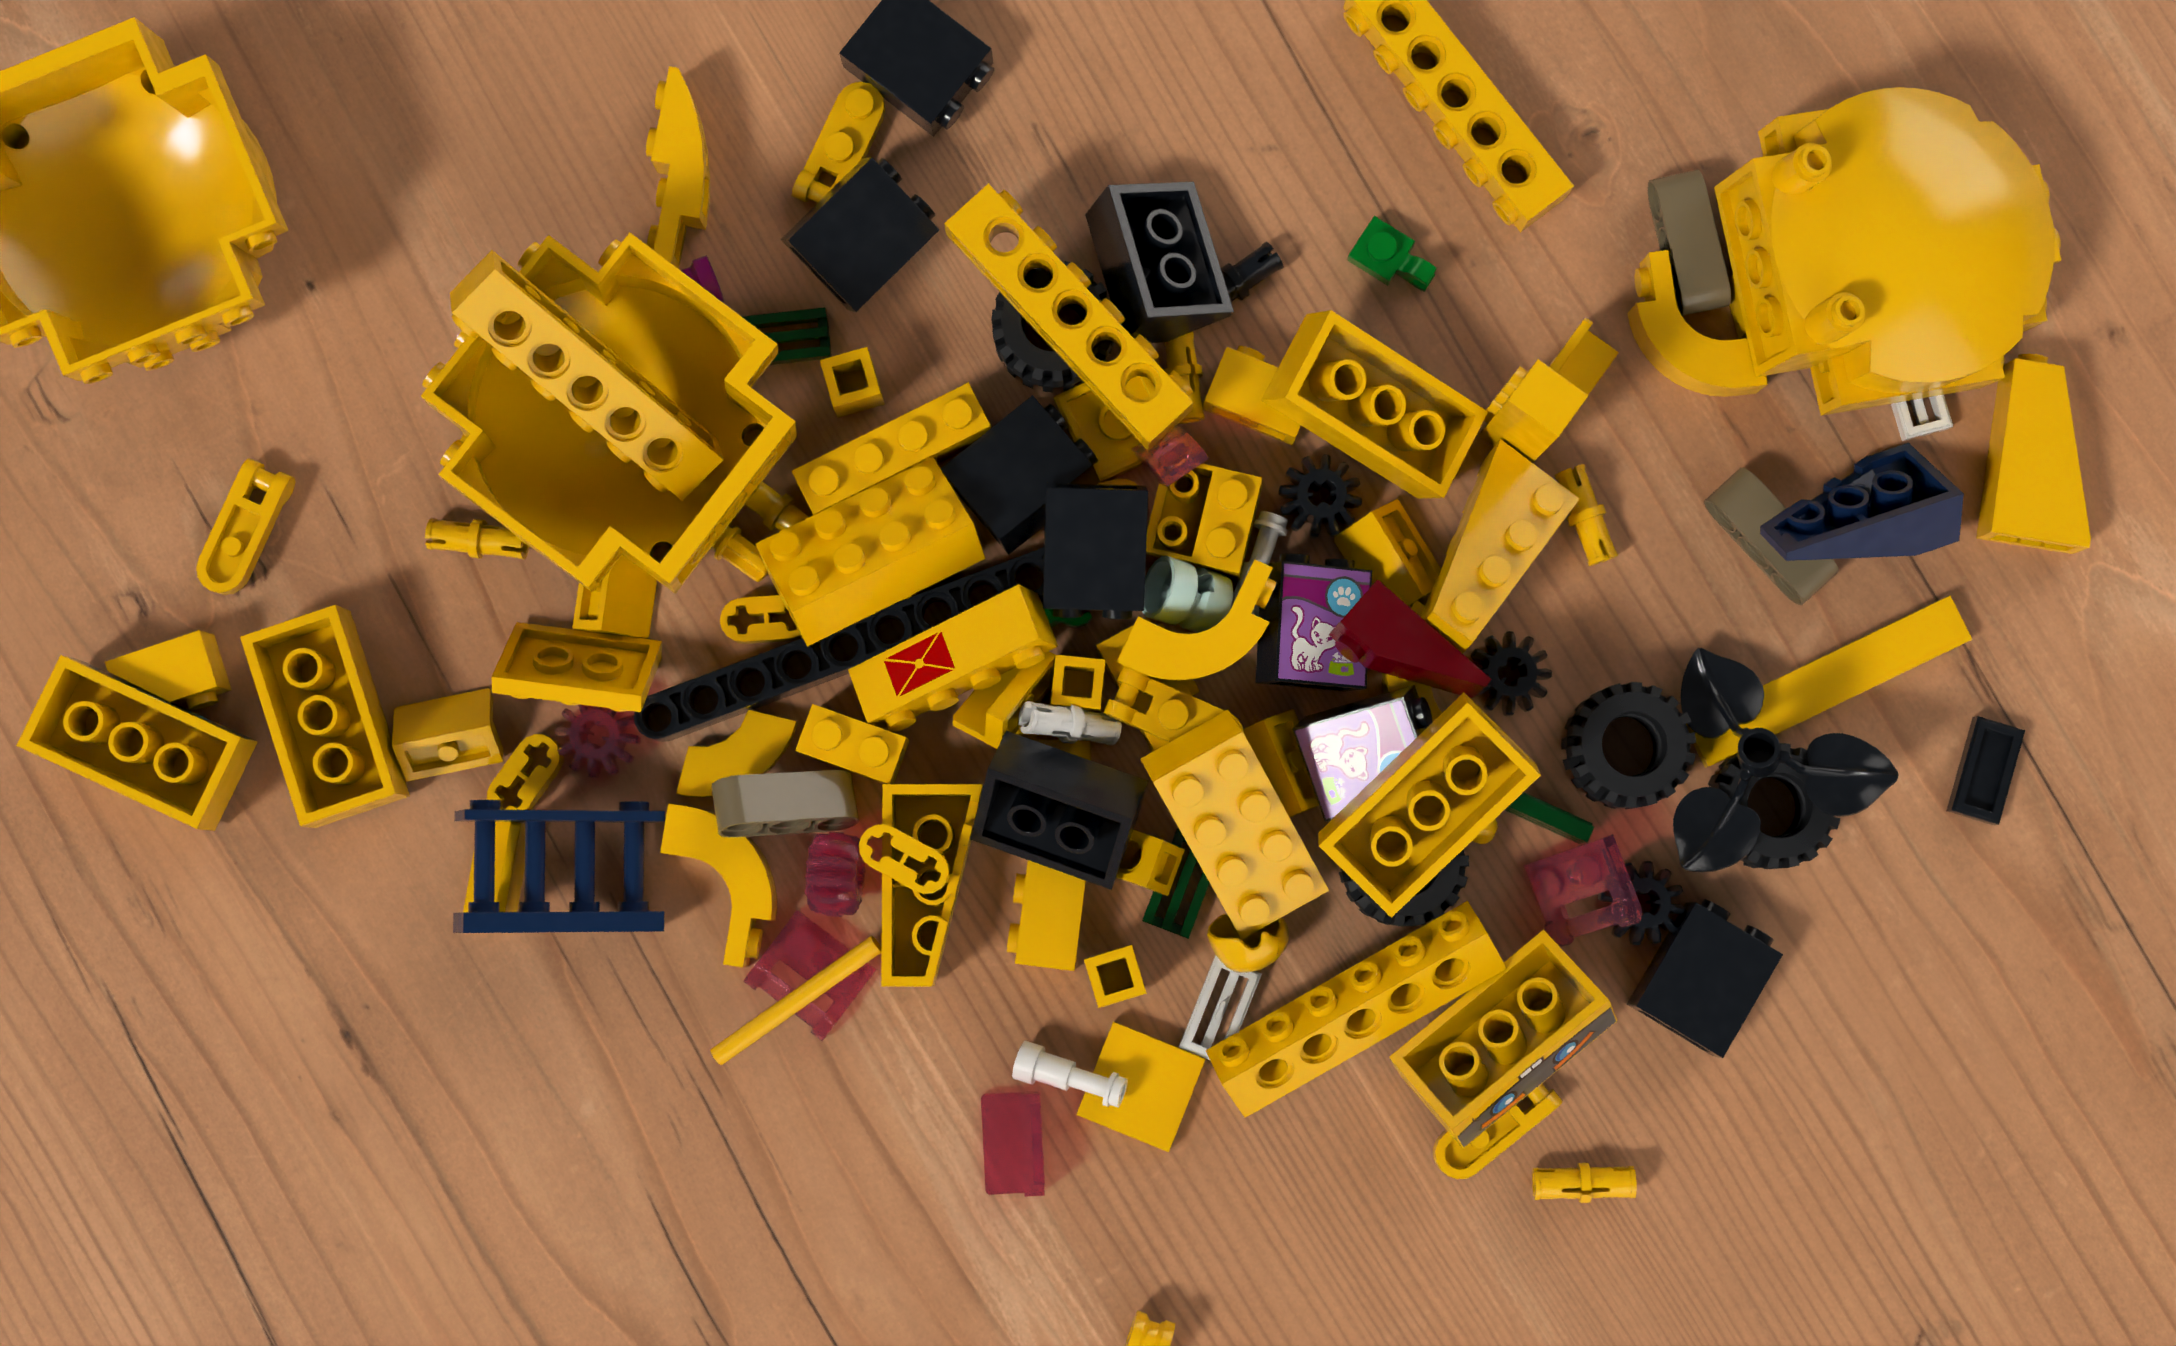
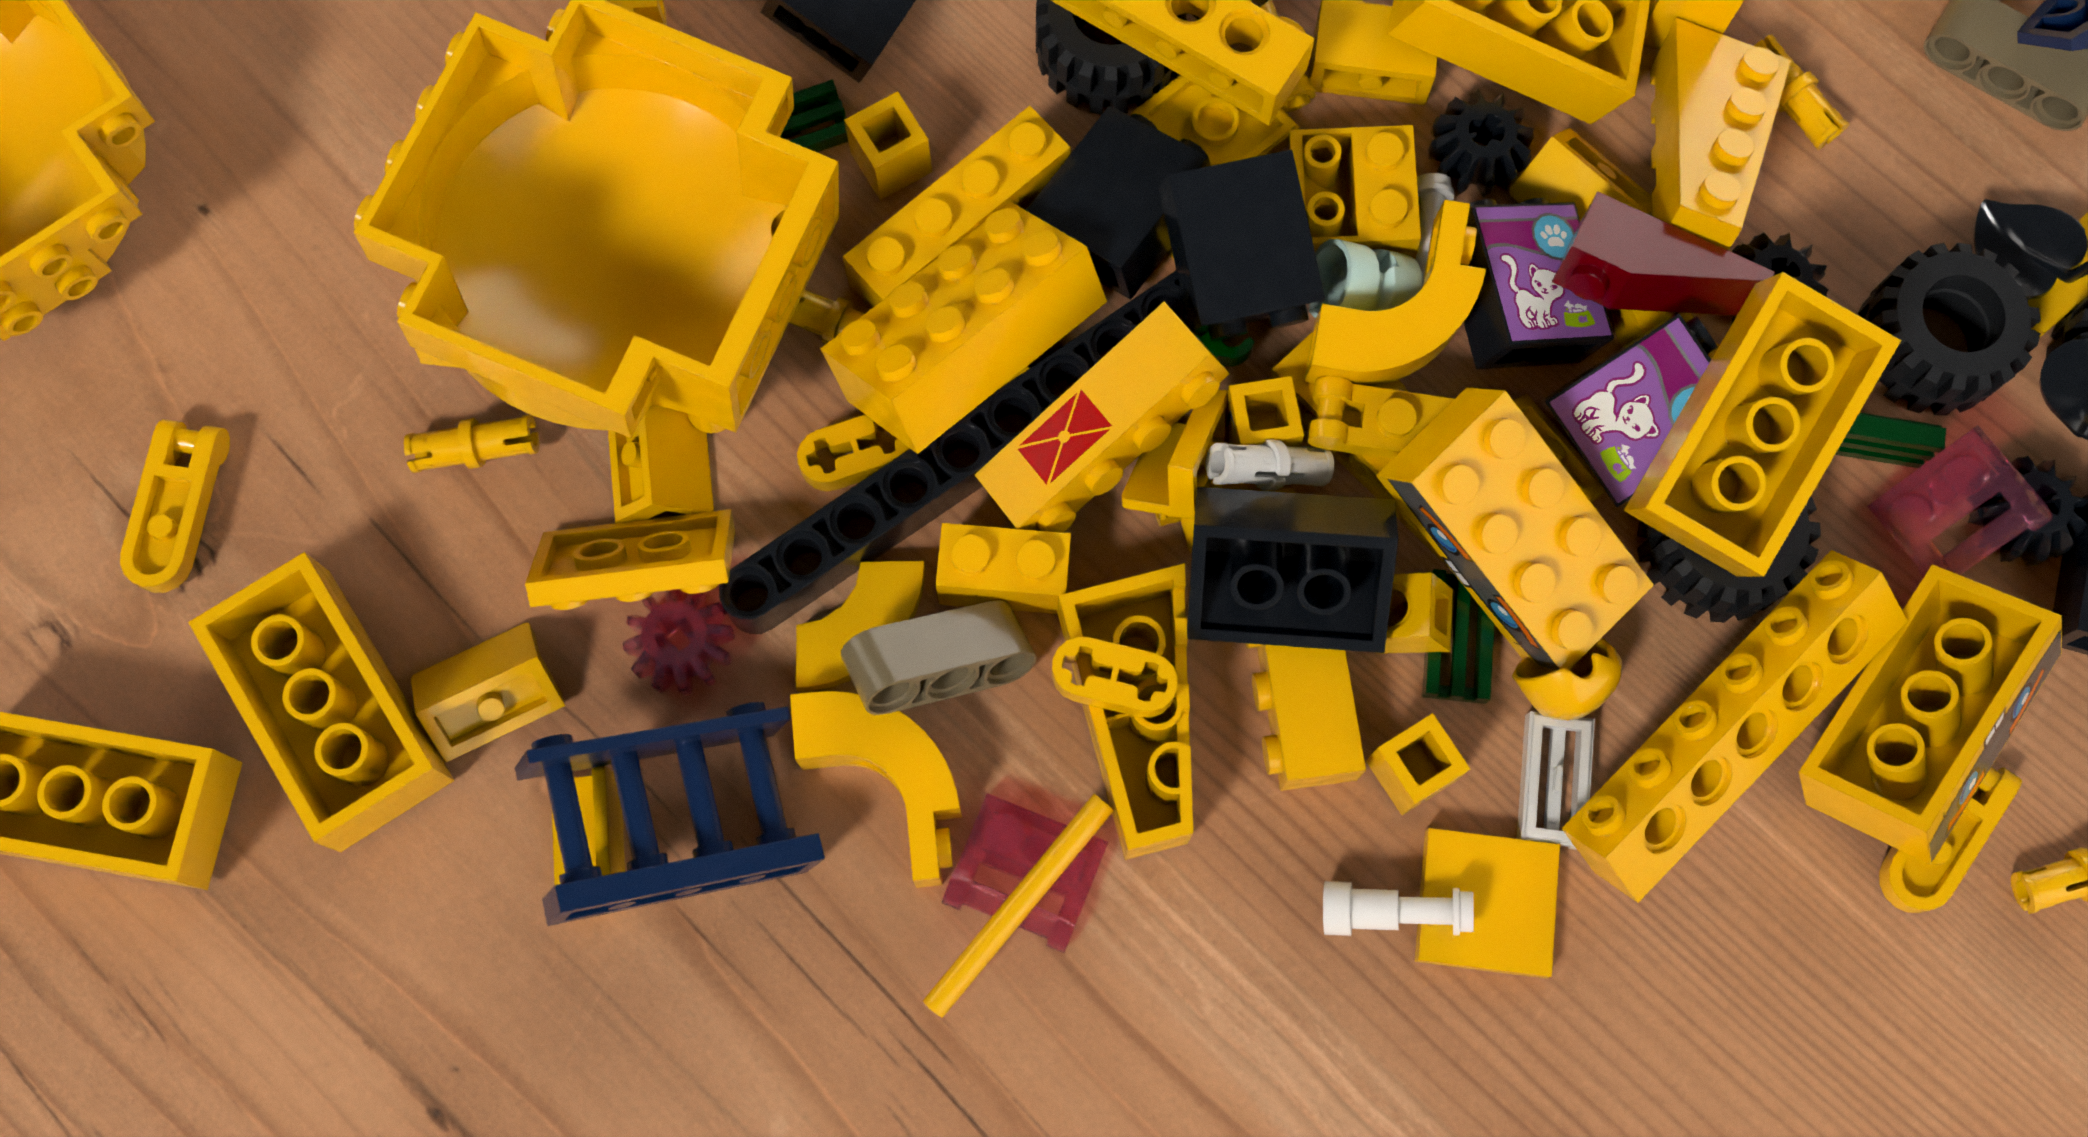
camera: 15 degrees left, 10 degrees down
(177, 670) = (120, 690): yellow slope -> none
(497, 288) = (420, 65): yellow brick -> none
(518, 764) = (587, 700): yellow beam -> none
(740, 553) = (802, 380): yellow axle -> none
(835, 874) = (1026, 730): clear pink gear -> none
(1013, 1143) = (1350, 1019): clear pink panel -> none
(1172, 456) = (1298, 121): slope -> none

